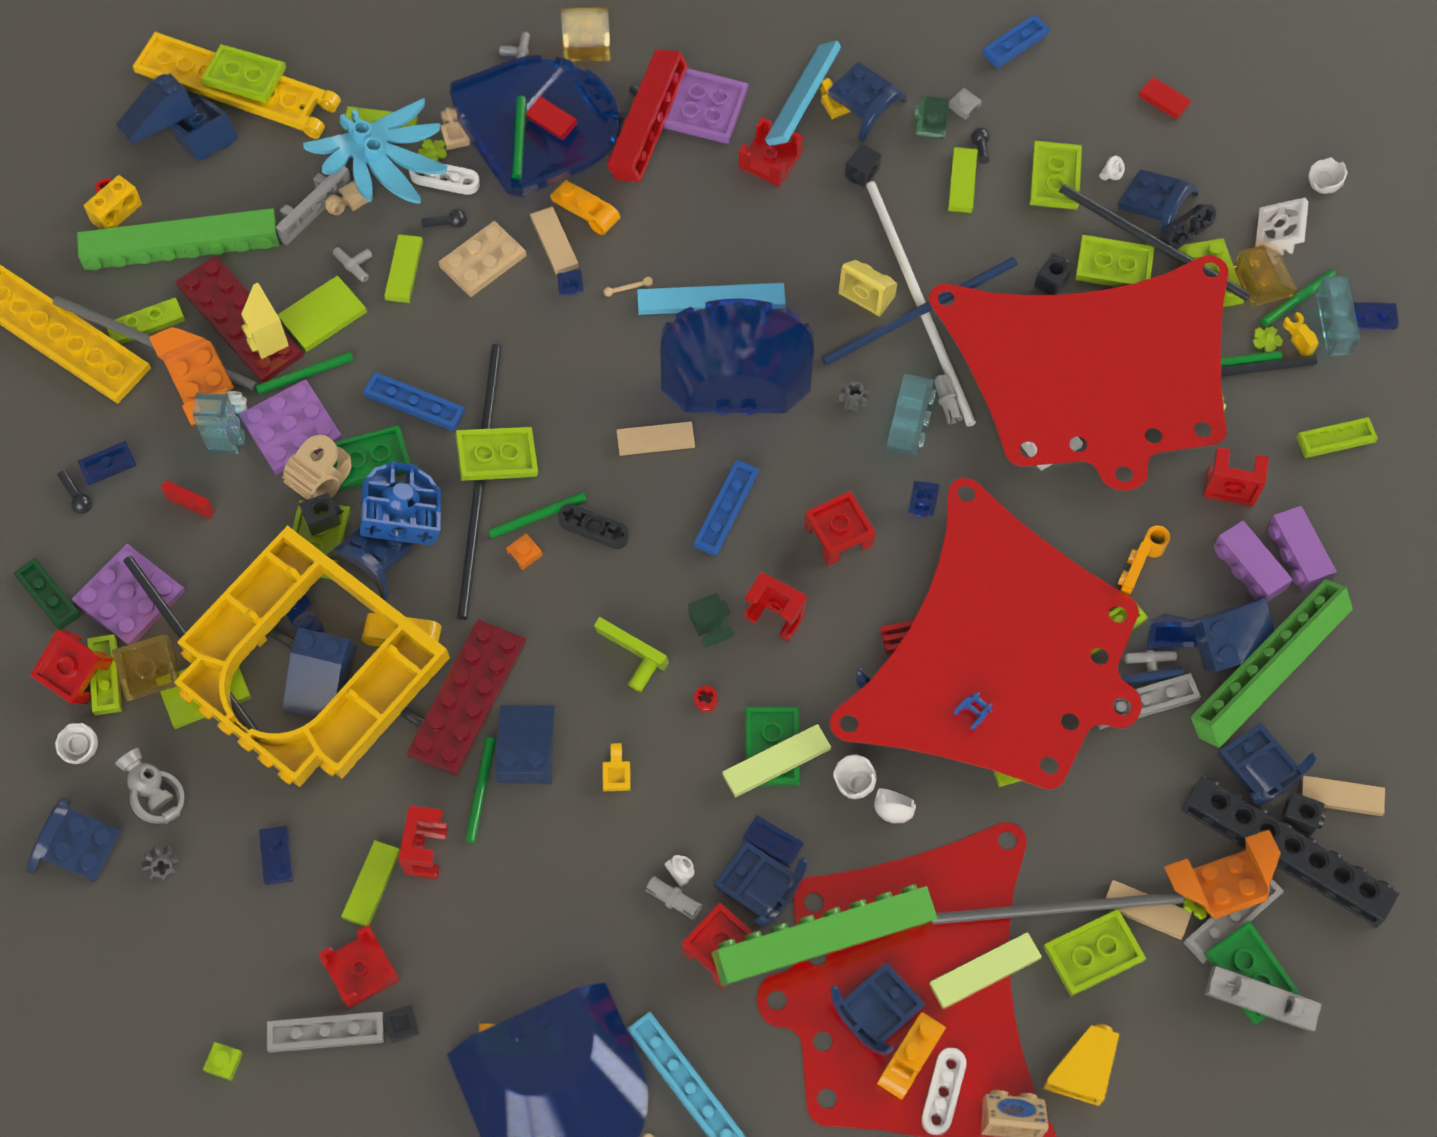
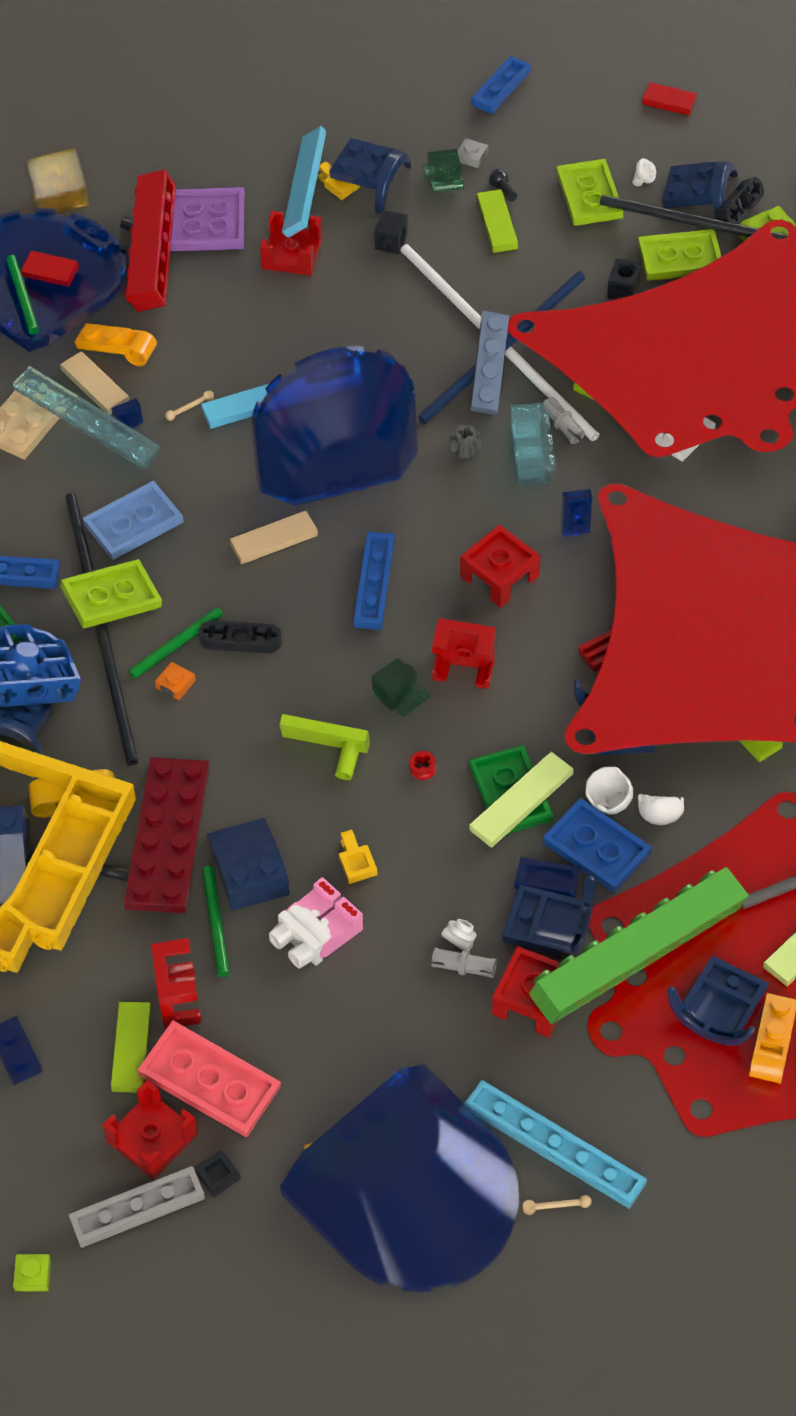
camera: 15 degrees left, 10 degrees down
(423, 936) = (209, 1078): none -> coral plate
(533, 276) = (86, 417): none -> clear light blue plate
(540, 386) = (133, 520): none -> medium blue plate
(561, 823) = (316, 925): none -> hips
(827, 824) = (597, 845): none -> blue plate
(866, 287) = (439, 339): light yellow slope -> none
(901, 324) = (489, 363): none -> sand blue plate
(967, 703) = (699, 683): blue piece -> none

